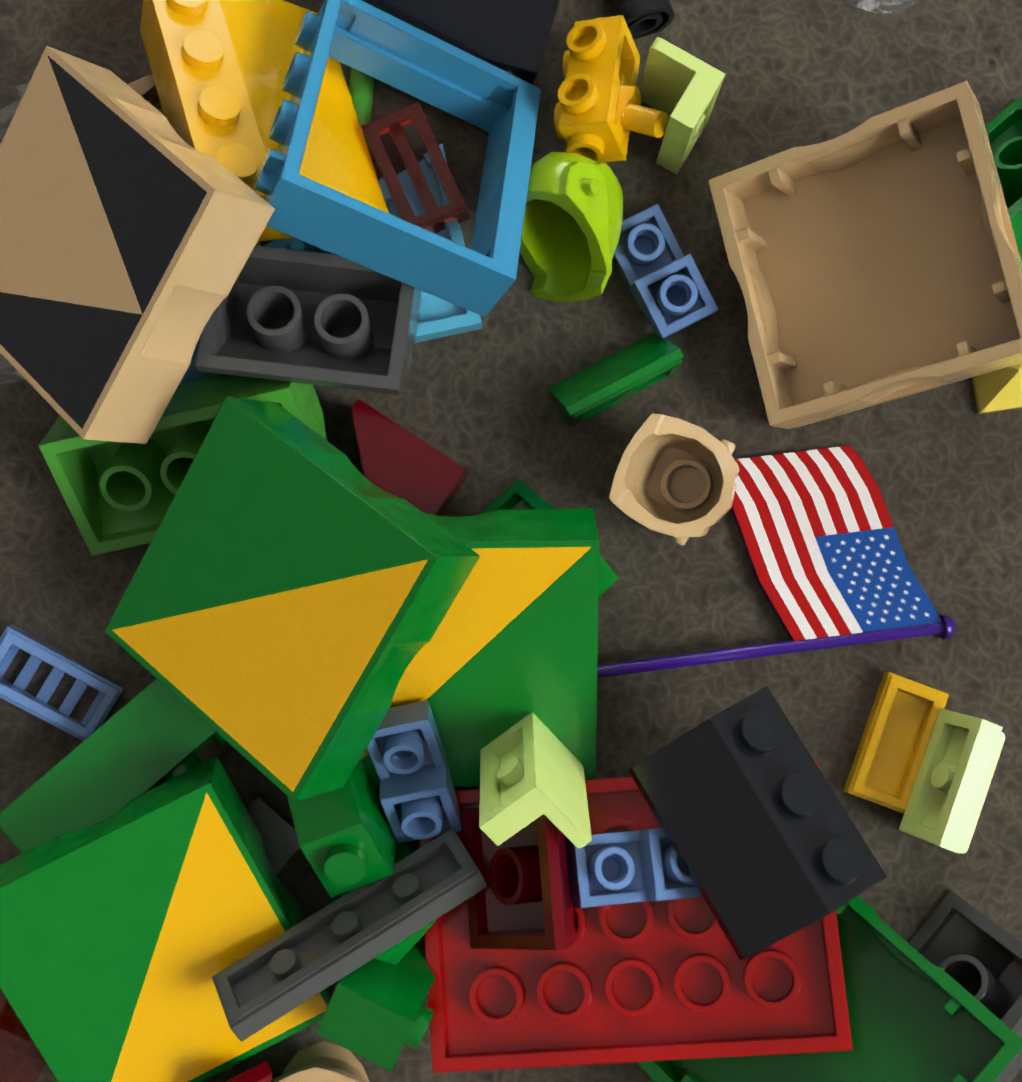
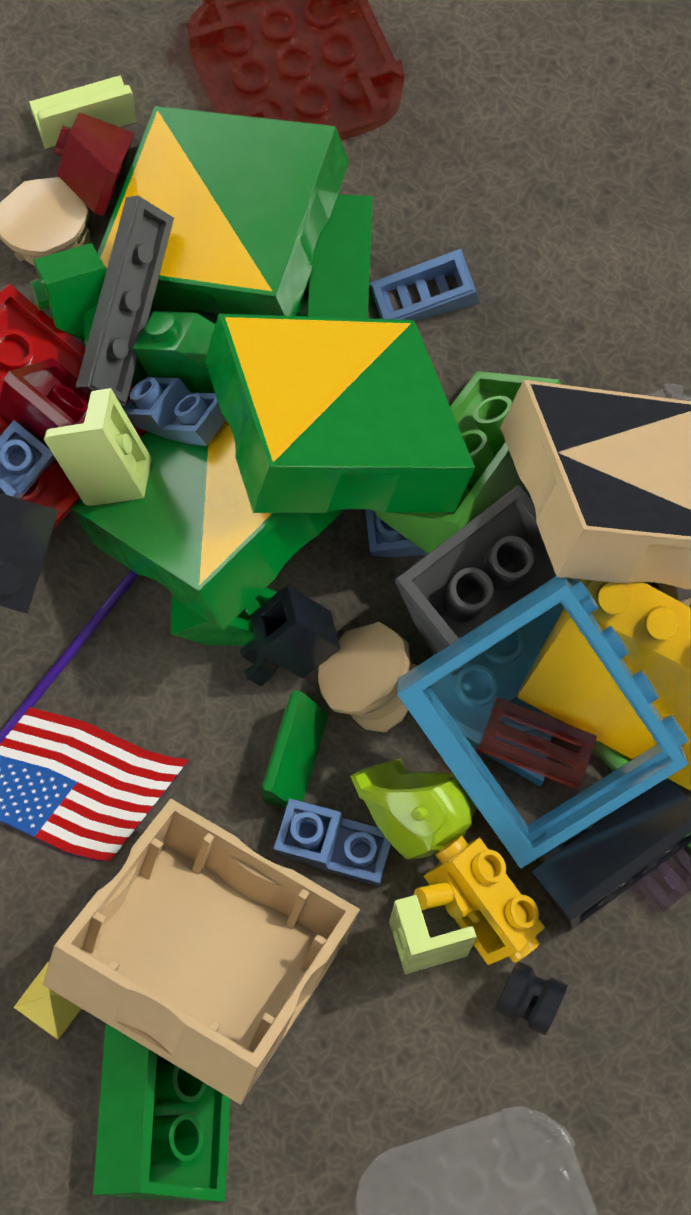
camera: 130 degrees right, 15 degrees down
(404, 462) = (353, 573): dark red slope -> none
(490, 373) = (365, 676): none -> tan hat
(521, 466) = (289, 634): none -> black brick
(675, 478) = (195, 711): tan helmet -> none

